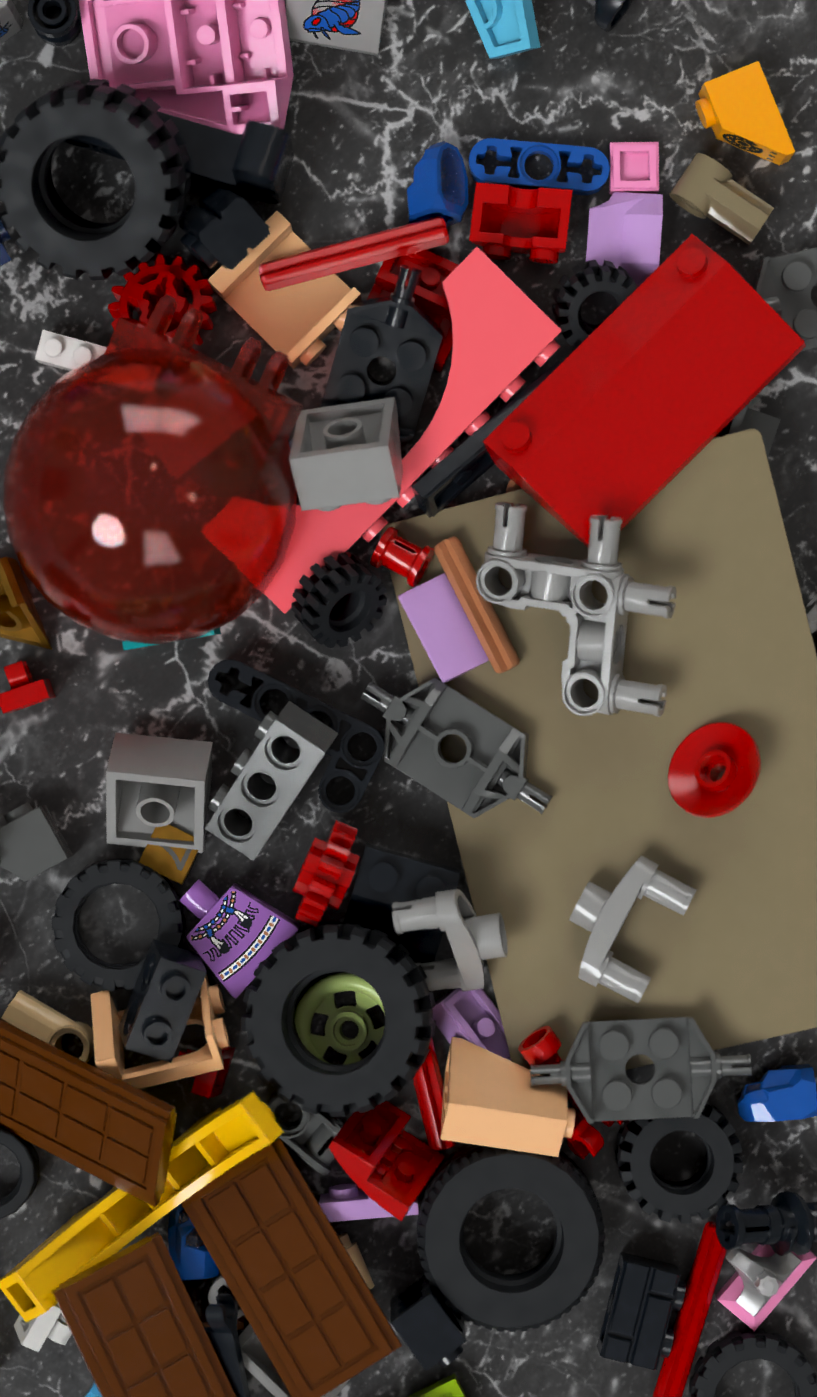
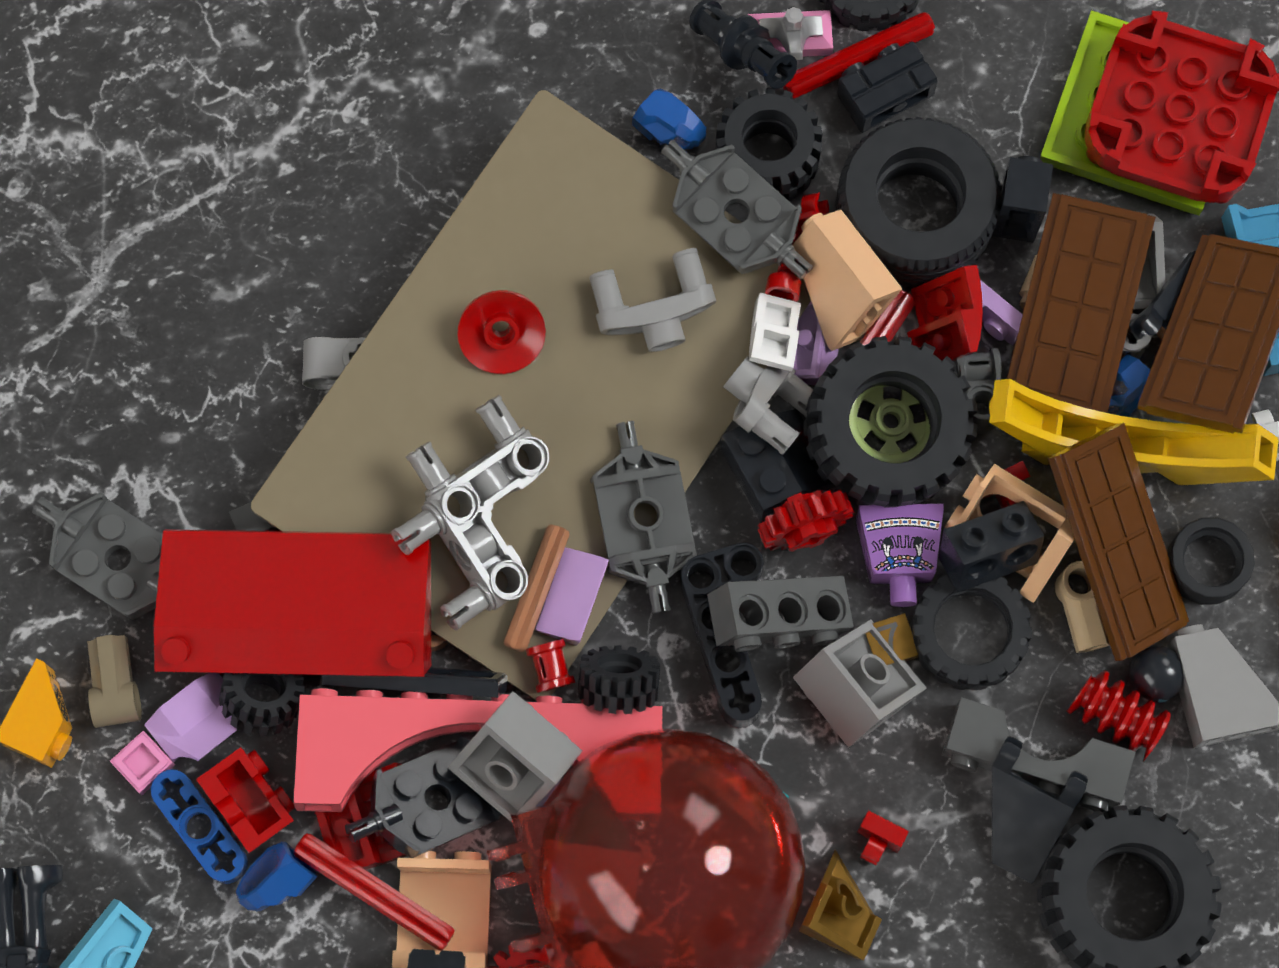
camera: 130 degrees left, 15 degrees down
(506, 1000) = (774, 332): none -> white slope

